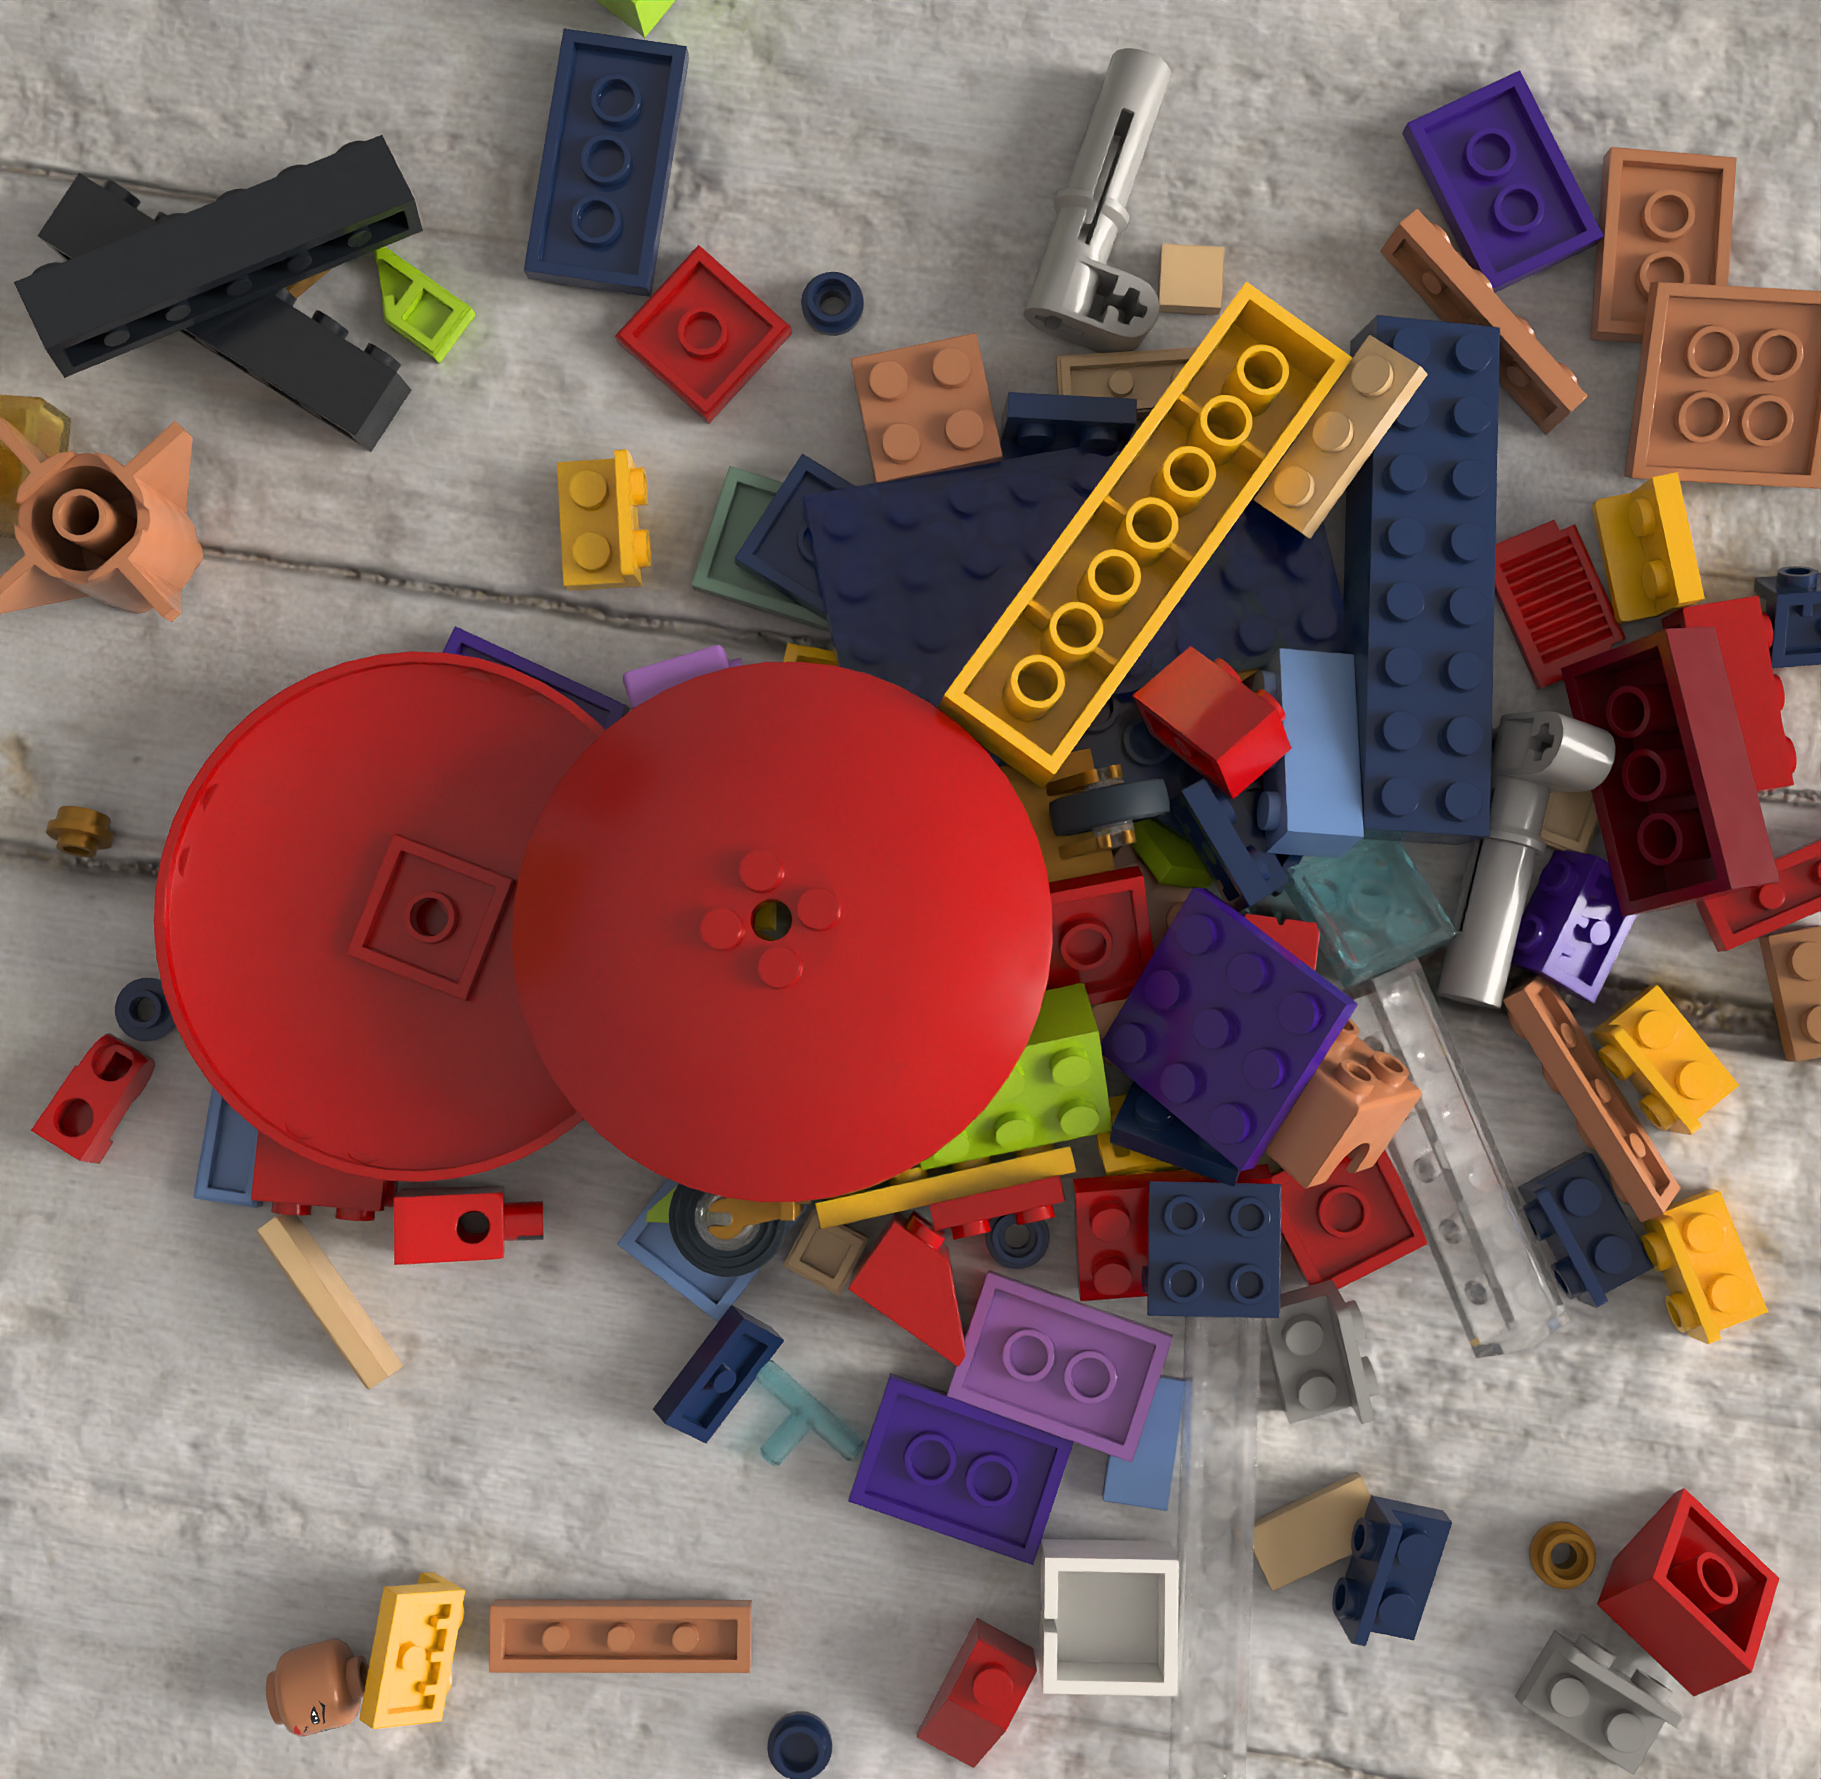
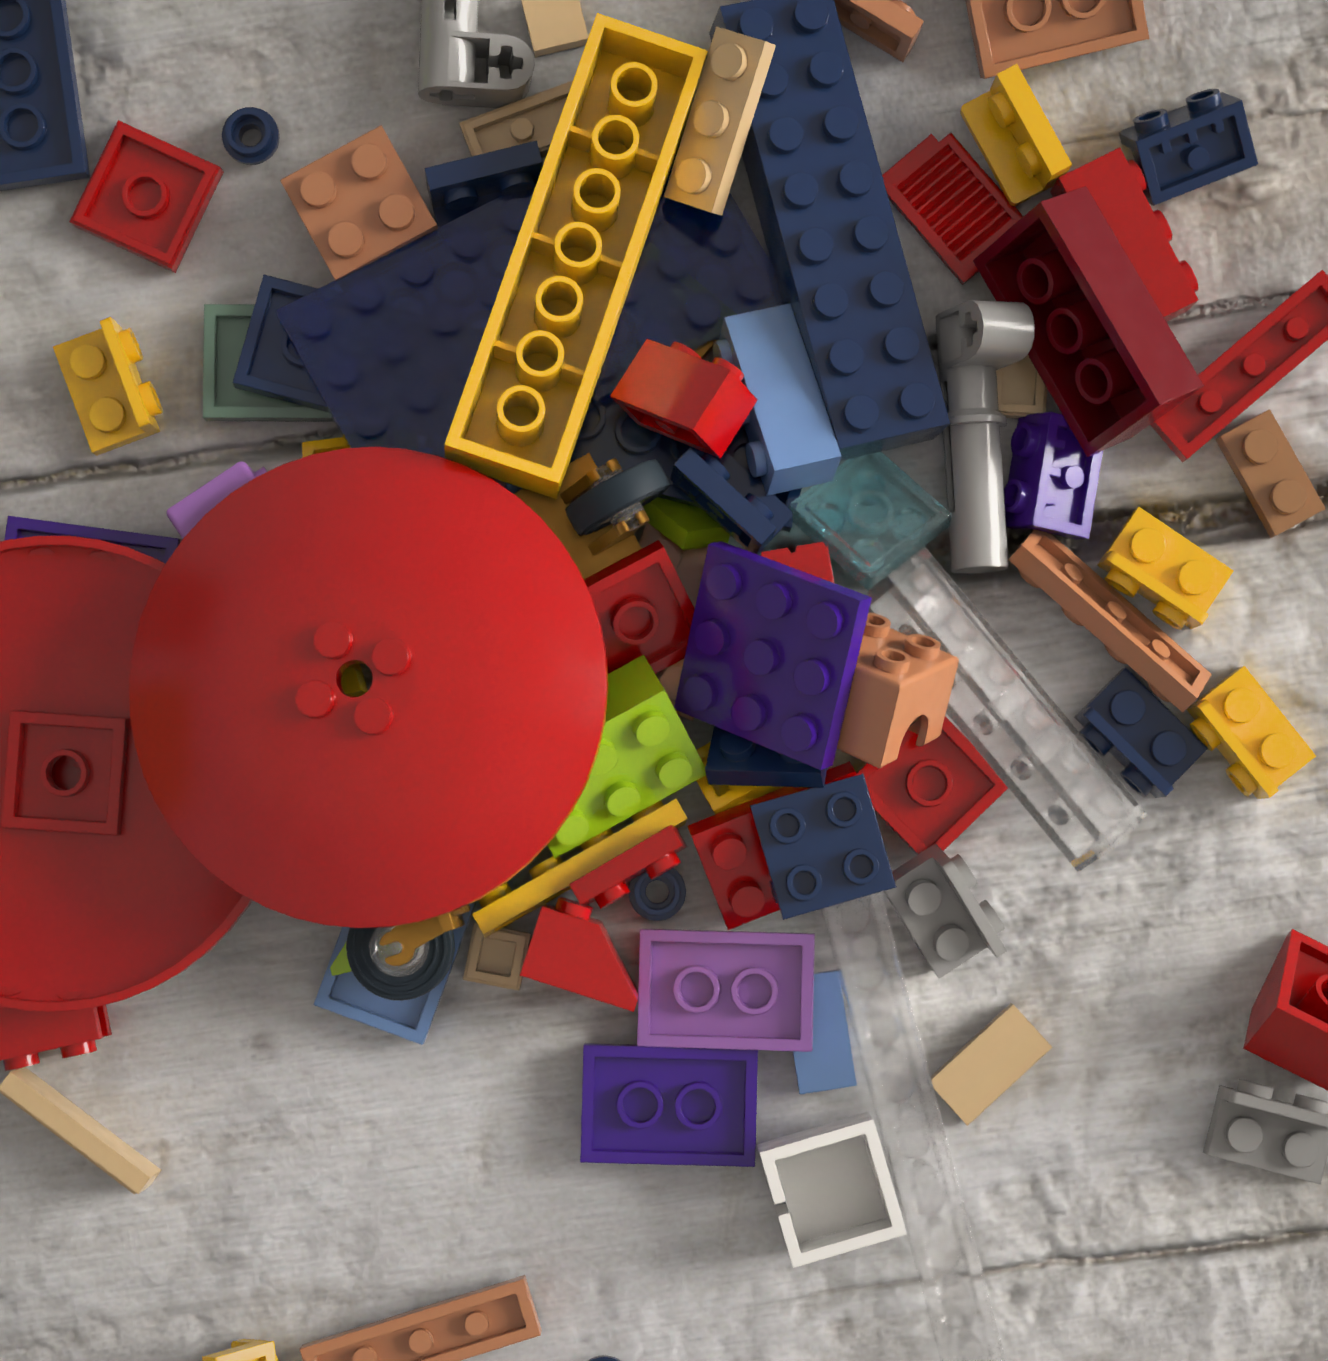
camera: 25 degrees left, 0 degrees up
(431, 1227) = (146, 1034): red torso -> none
(718, 1374) = (435, 1089): dark blue plate -> none
(805, 1415) = (522, 1102): clear light blue piece -> none
(979, 1694) = (742, 1293): red slope -> none
(1390, 1569) = (1061, 1074): dark blue bracket -> none
(1578, 1565) = (1222, 1022): pearl gold plate -> none

